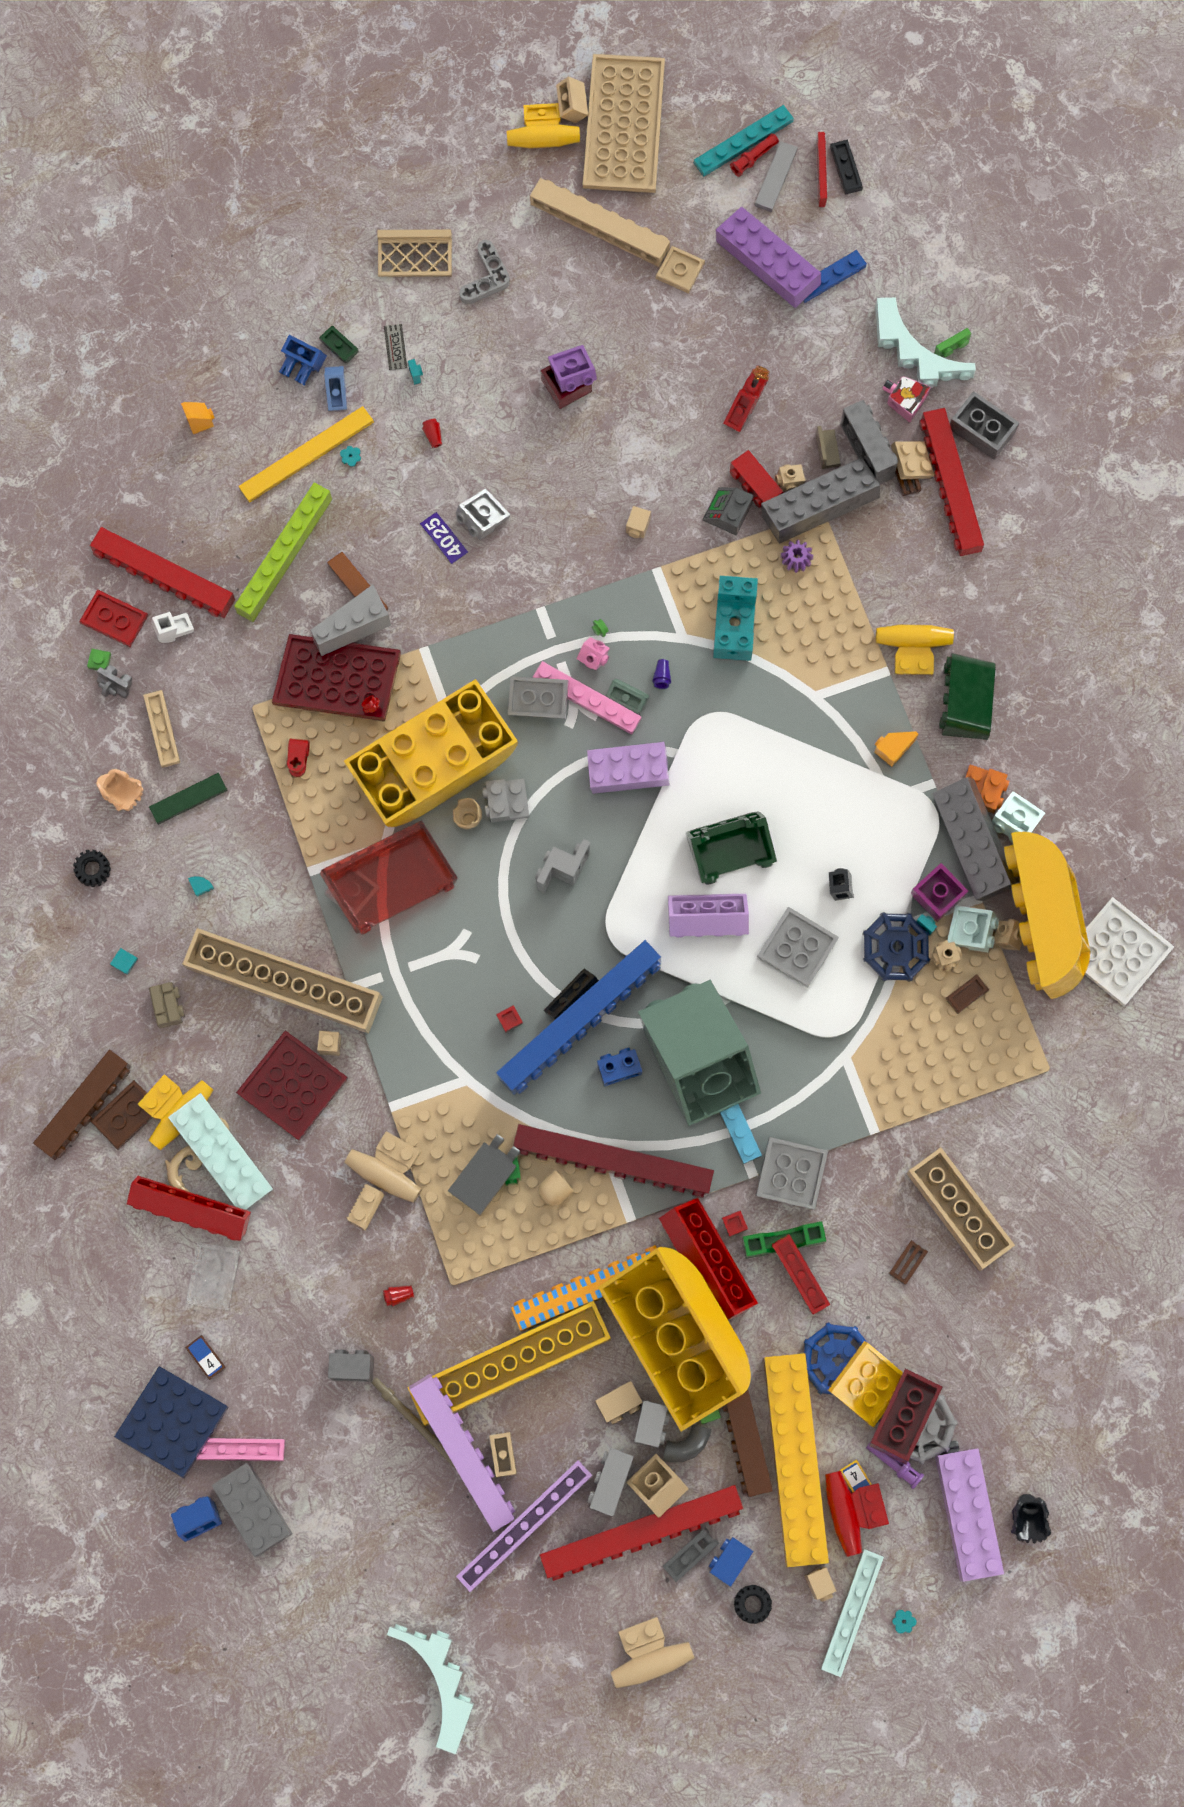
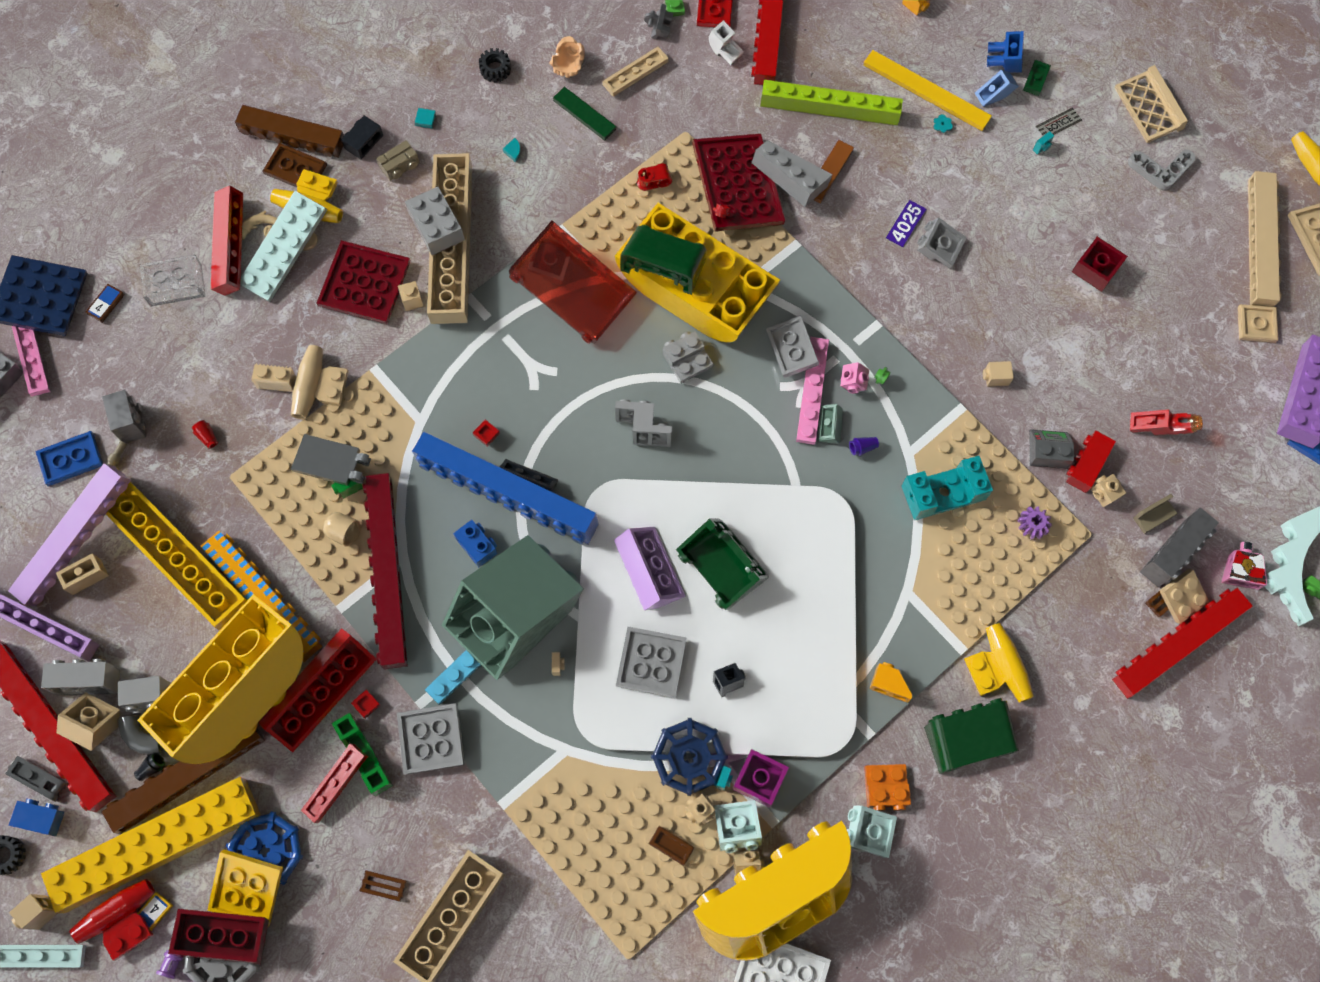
camera: 65 degrees right, 5 degrees down
(122, 1033) = (362, 137): none -> black brick
(267, 986) = (434, 220): none -> light grey brick
(367, 1439) = (69, 458): none -> blue tile
(415, 775) = (664, 256): none -> dark green windscreen
(433, 433) = (996, 177): red cone -> none
(467, 813) = (659, 328): tan hair -> none
(572, 368) = (1111, 258): medium lavender plate -> none
(619, 1402) = (161, 659): tan brick -> none
(628, 767) = (760, 446): lavender brick -> none
(720, 1442) = (152, 764): none -> black cone
(766, 1033) = (557, 664): none -> tan plate
(820, 500) = (1101, 525): flat silver brick -> none
(974, 839) = (831, 792): flat silver brick -> none
(984, 425) = (1255, 651): flat silver brick -> none

